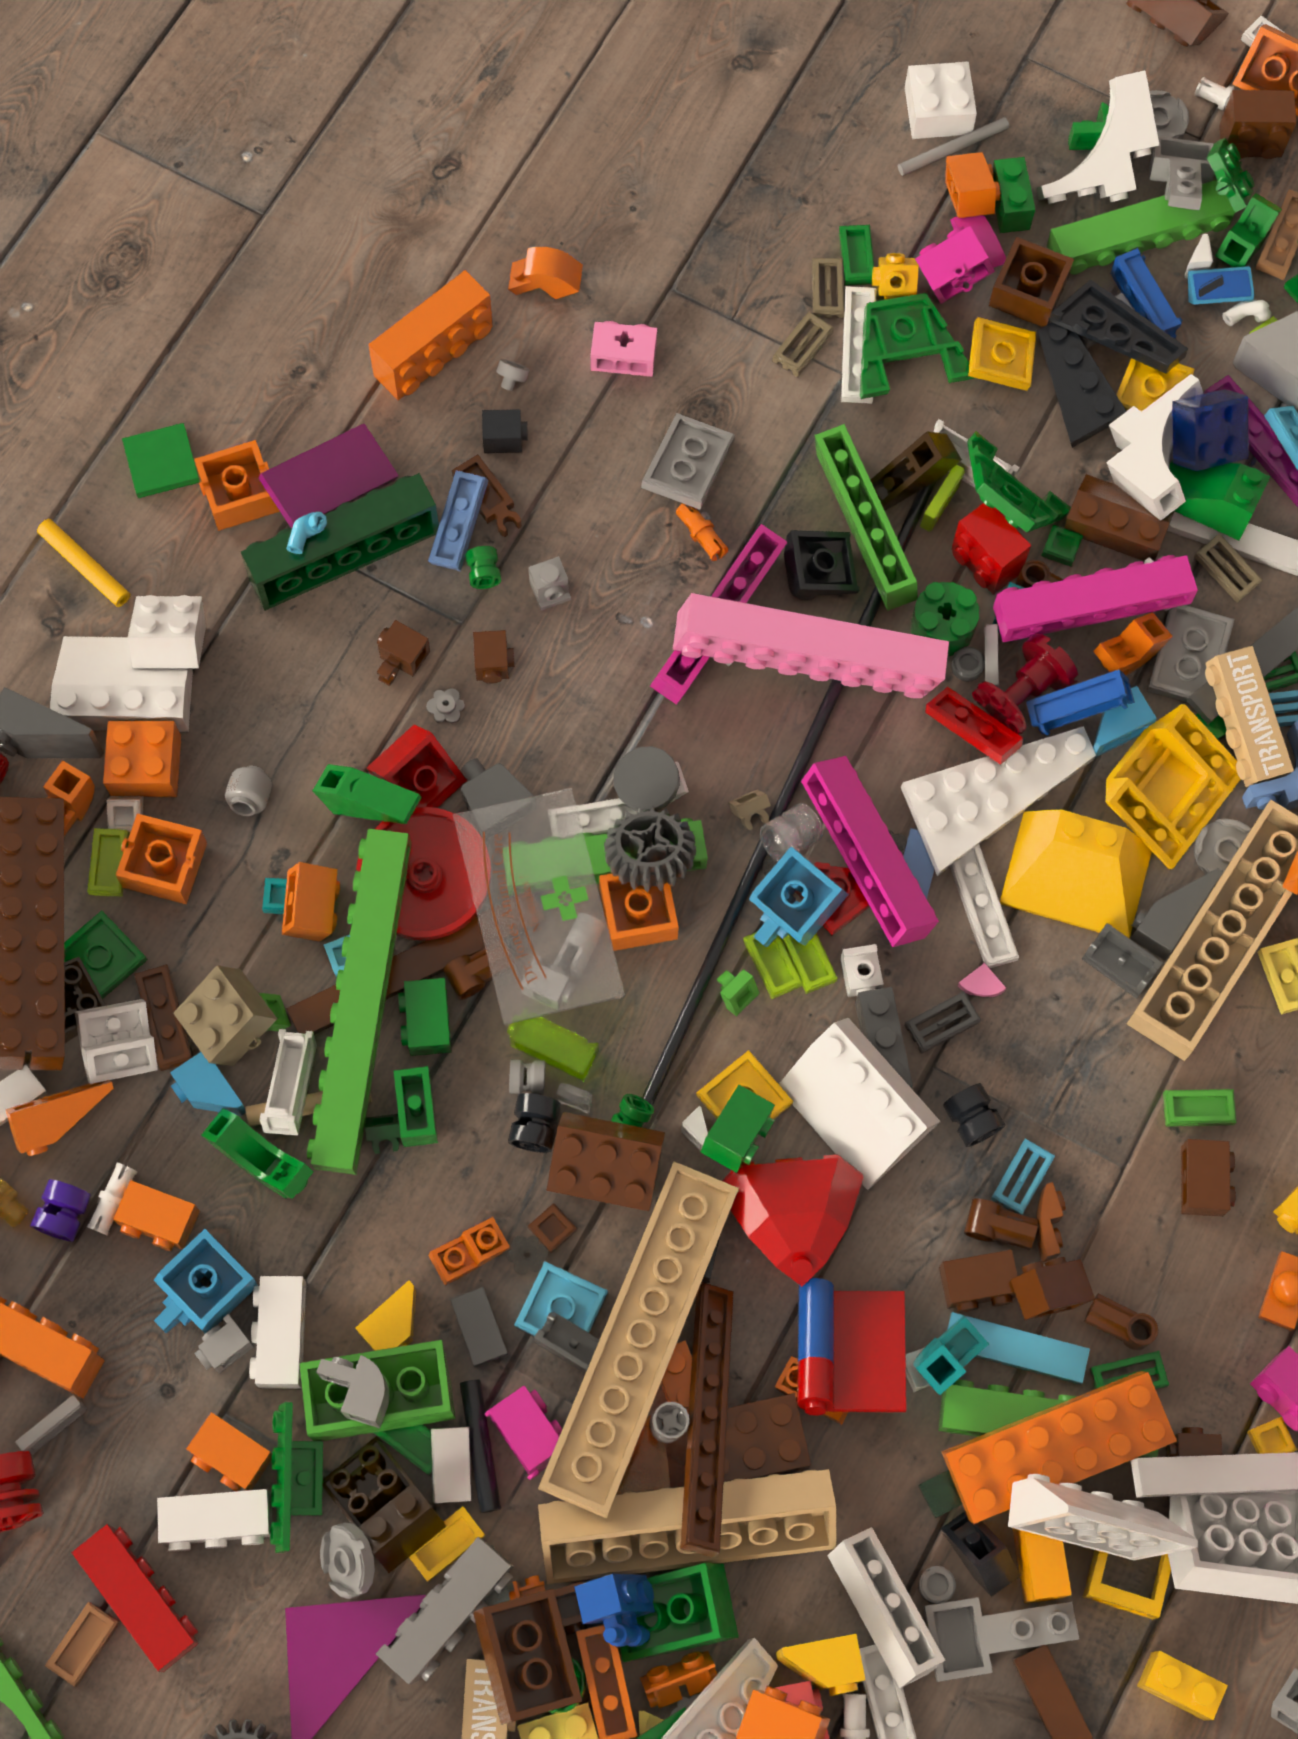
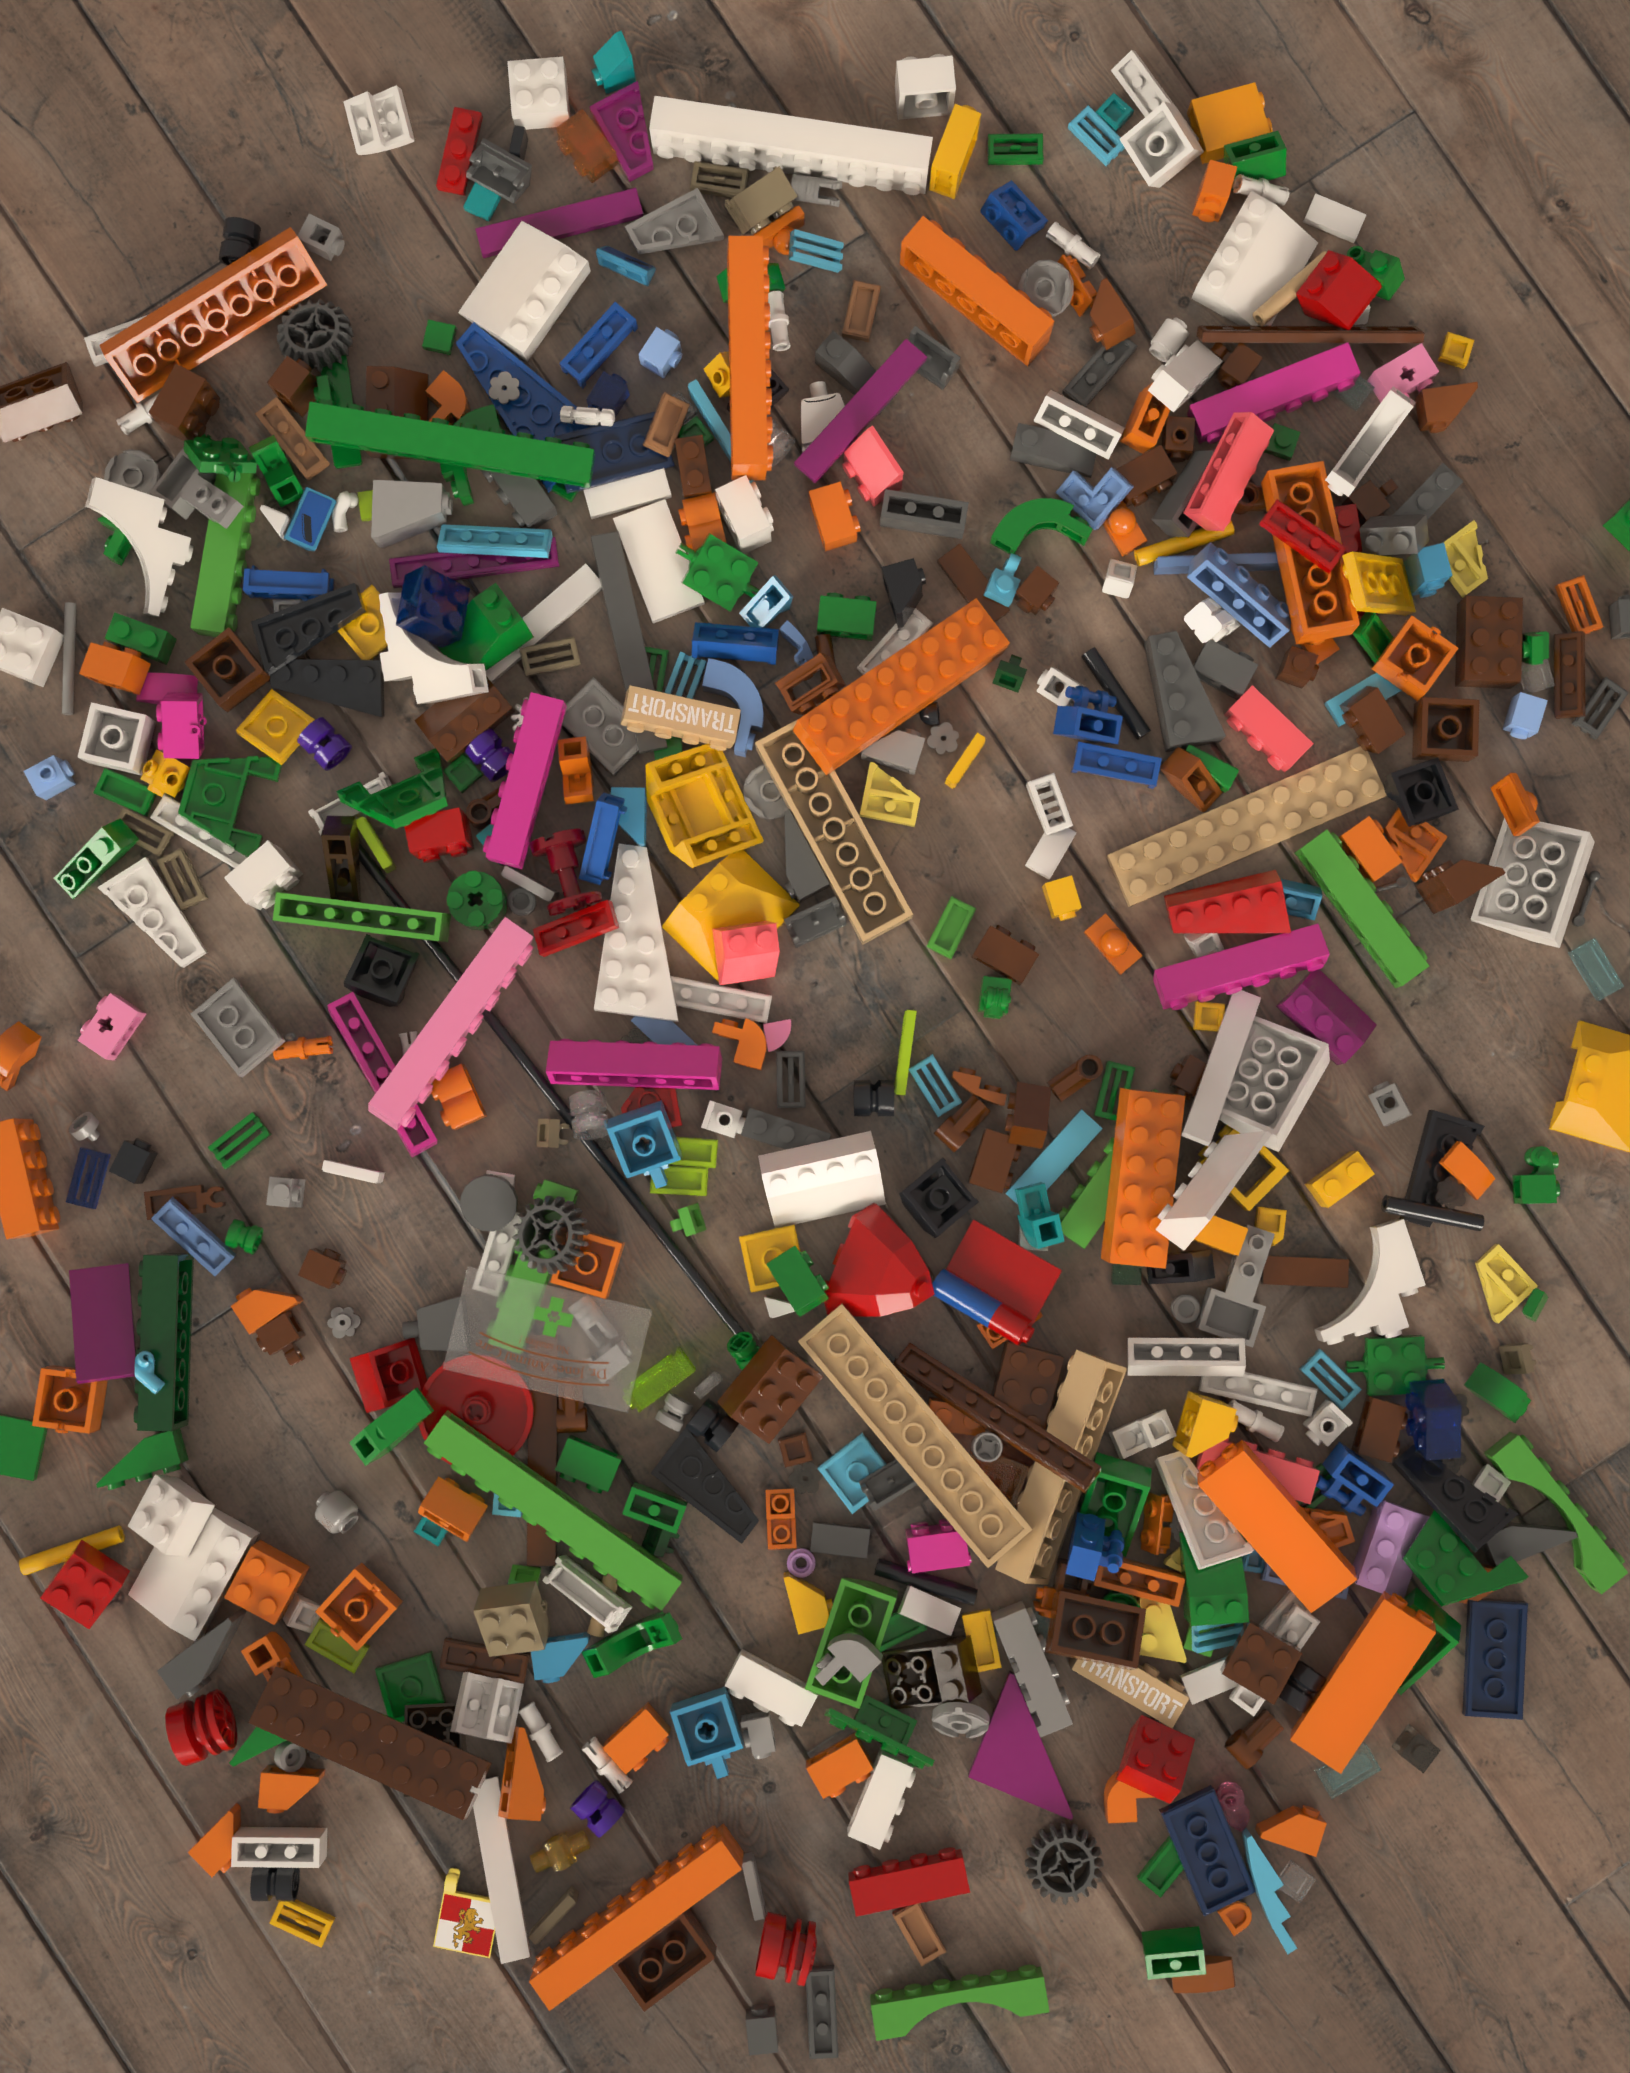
camera: 60 degrees left, 15 degrees up
(56, 586) = (85, 1584): none -> red brick
(115, 1111) = (540, 1731): none -> white pin
(221, 588) = (153, 1453): none -> green slope
(422, 613) = (262, 1306): none -> orange slope
(424, 1289) = (801, 1572): none -> lavender plate
(462, 406) = (98, 1182): none -> clear blue tile
(465, 1144) = (700, 1482): none -> black wing
(578, 507) = (220, 1155): none -> green tile
(605, 636) = (353, 1171): none -> white tile
(735, 699) = (458, 1098): none -> orange brick
(761, 327) = (152, 907): none -> white wing
(771, 1608) = (1142, 1433): none -> white slope
(781, 257) = (96, 857): none -> green slope
(832, 182) = (50, 777): none -> light blue brick
(853, 402) = (263, 875): none -> white brick
(904, 217) = (116, 739): none -> white brick
(905, 1238) = (937, 1199): none -> black slope
(959, 958) = (751, 1045): none -> orange brick
(1013, 402) = (321, 740): none -> dark purple wheel
(1041, 1124) = (904, 1052): none -> lime tile
(1050, 904) = (746, 952): none -> coral slope
(1091, 1635) = (1272, 1221): none -> yellow tile
(1097, 552) = (488, 751): none -> dark purple wheel
(1155, 1188) = (994, 997): none -> green brick

